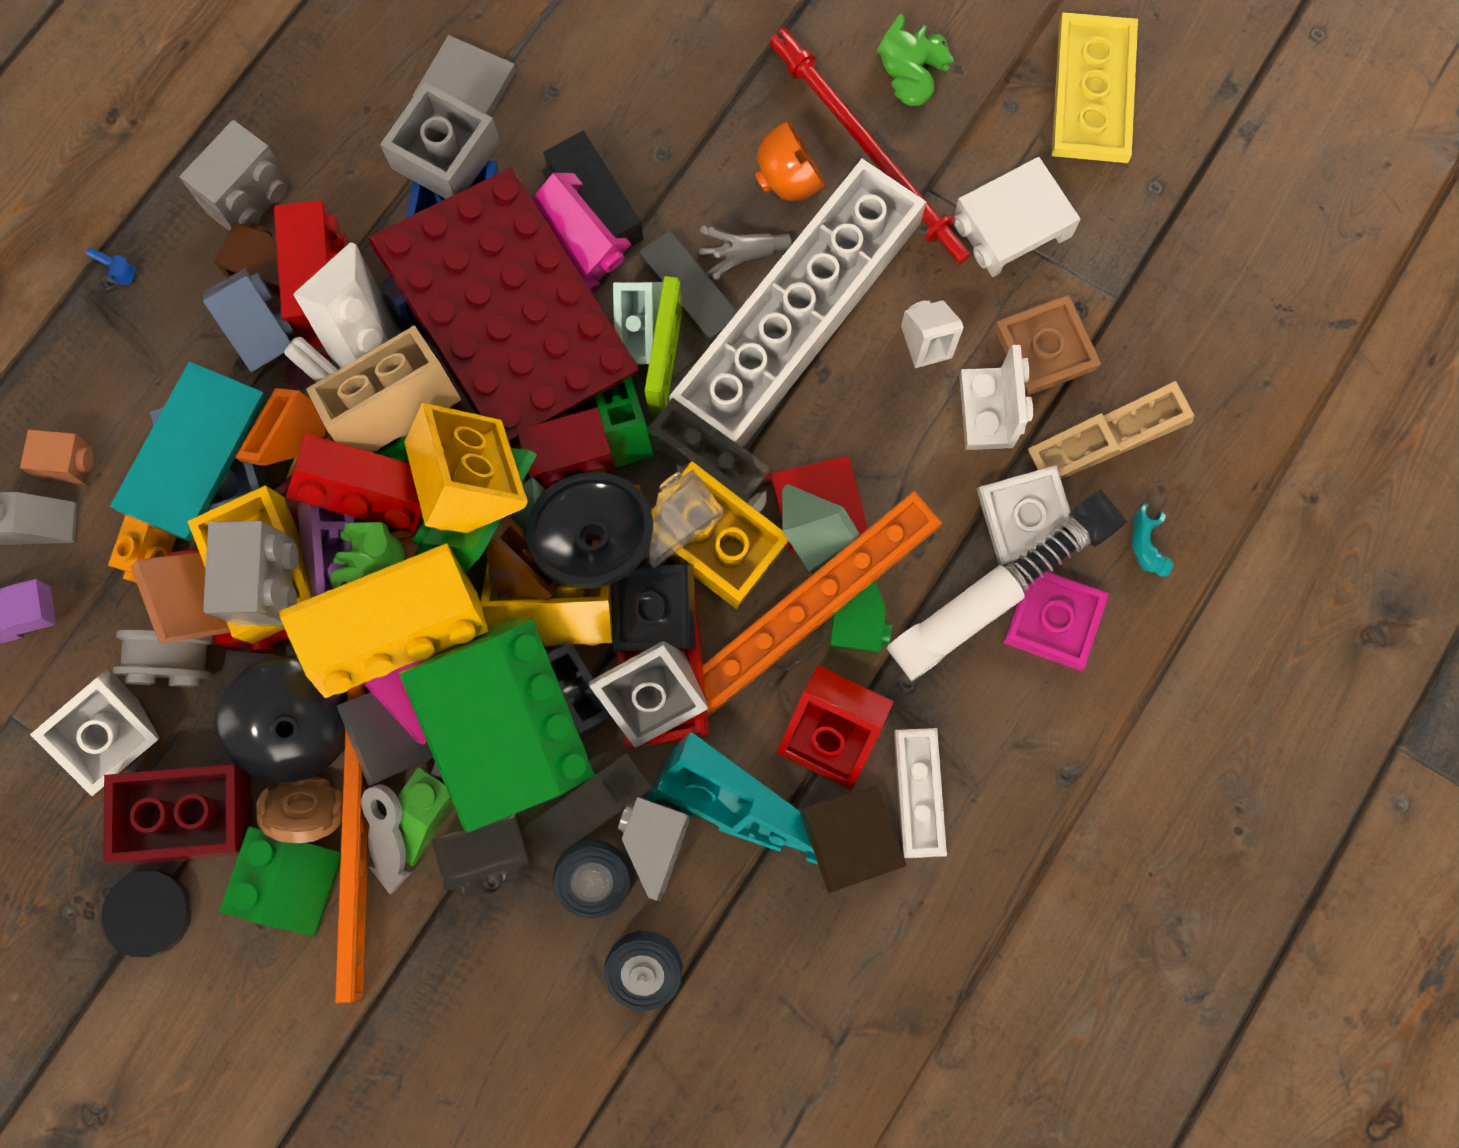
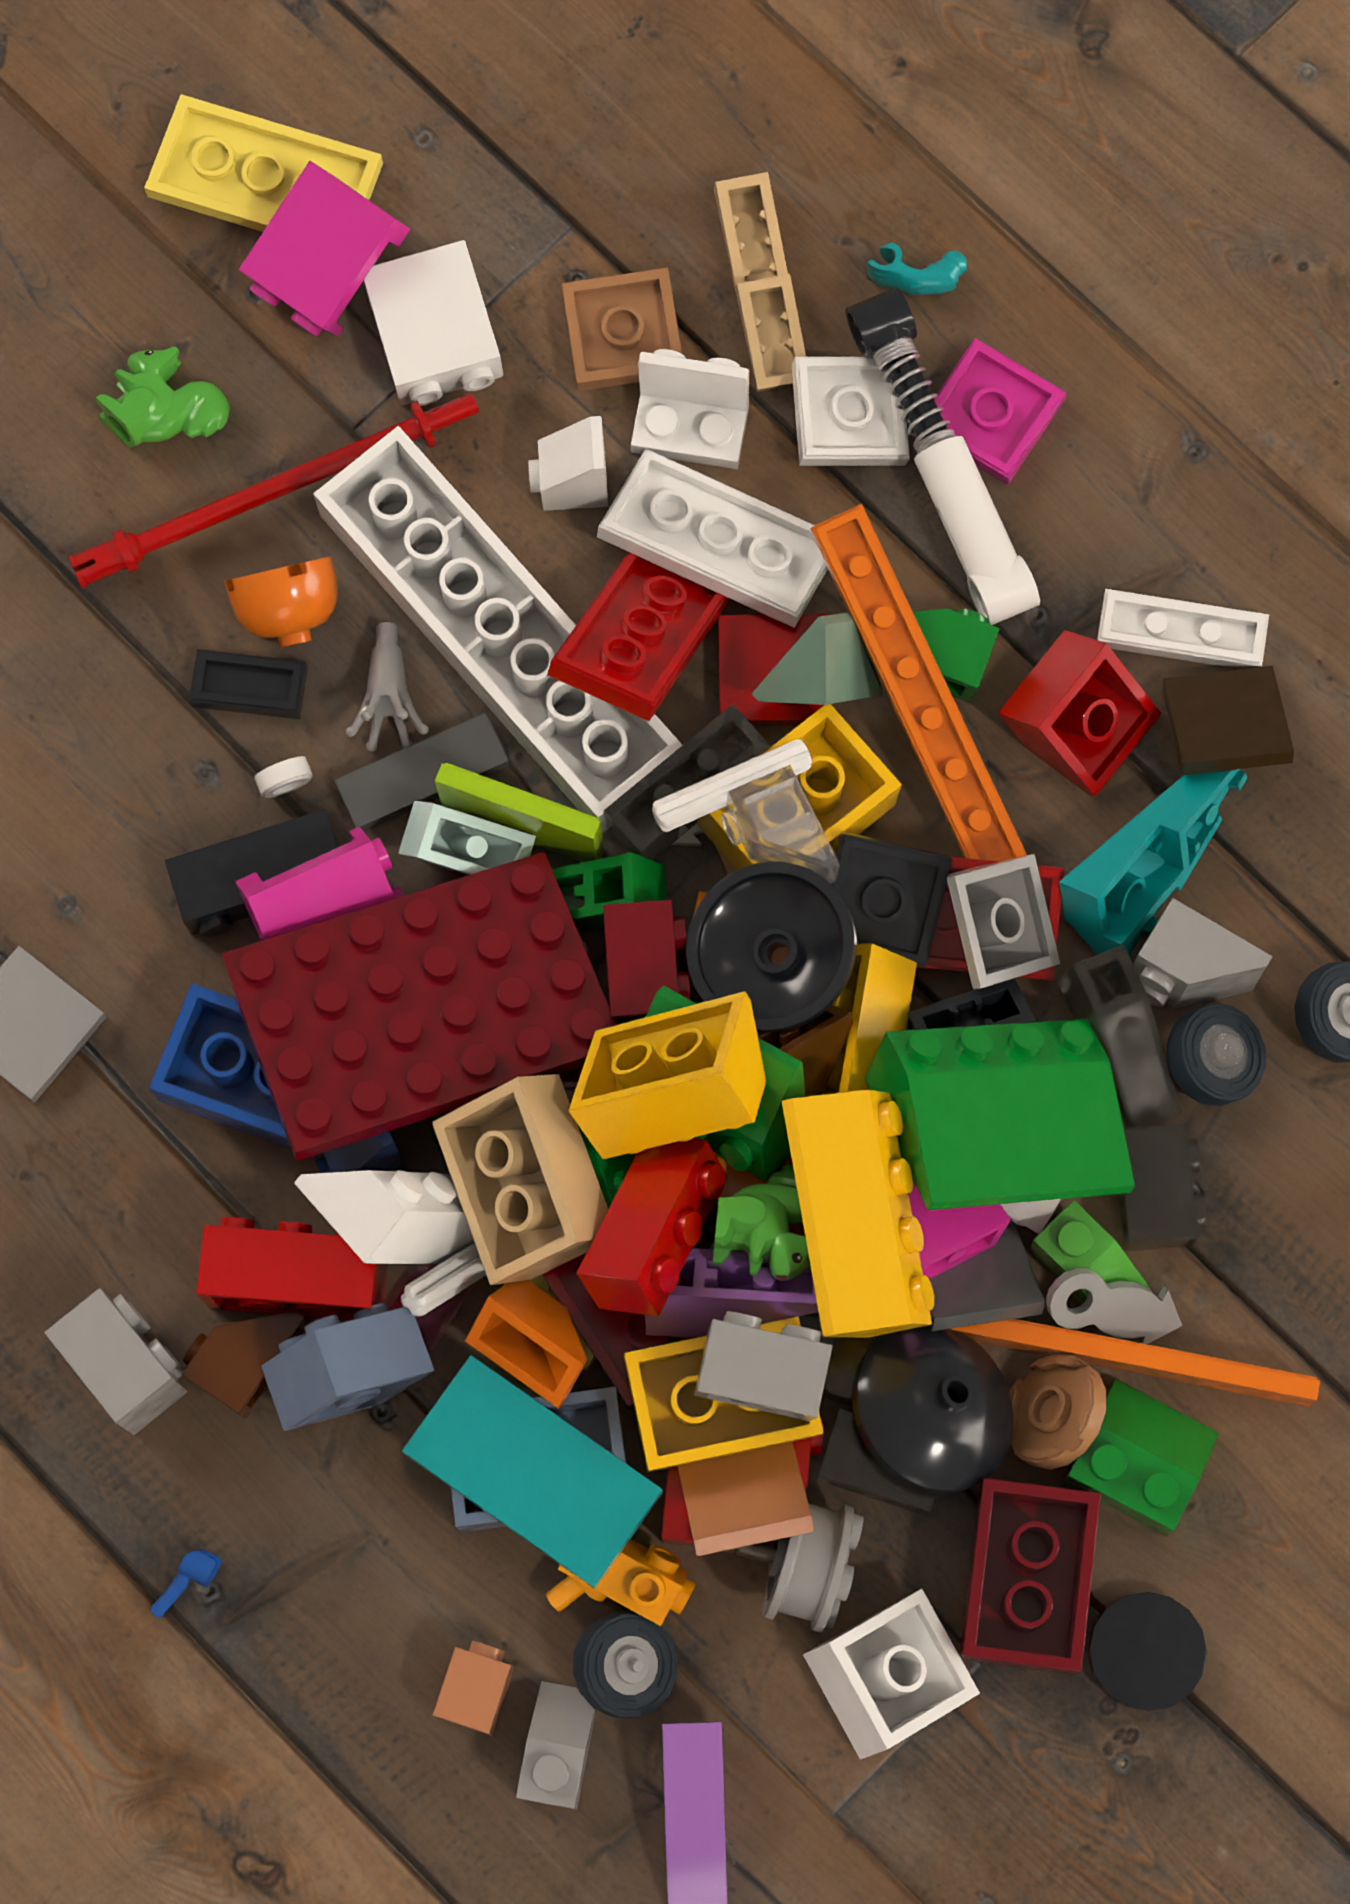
camera: 75 degrees left, 0 degrees up
(81, 550) = (625, 1665): none -> black wheel
(440, 142) = (164, 1040): light grey brick -> none
(664, 197) = (283, 777): none -> white tile
(692, 458) = (712, 792): none -> white axle
(728, 164) = (248, 684): none -> black tile
(814, 397) = (637, 636): none -> red tile
(905, 437) = (716, 537): none -> white tile
(1049, 127) = (319, 249): none -> dark pink panel

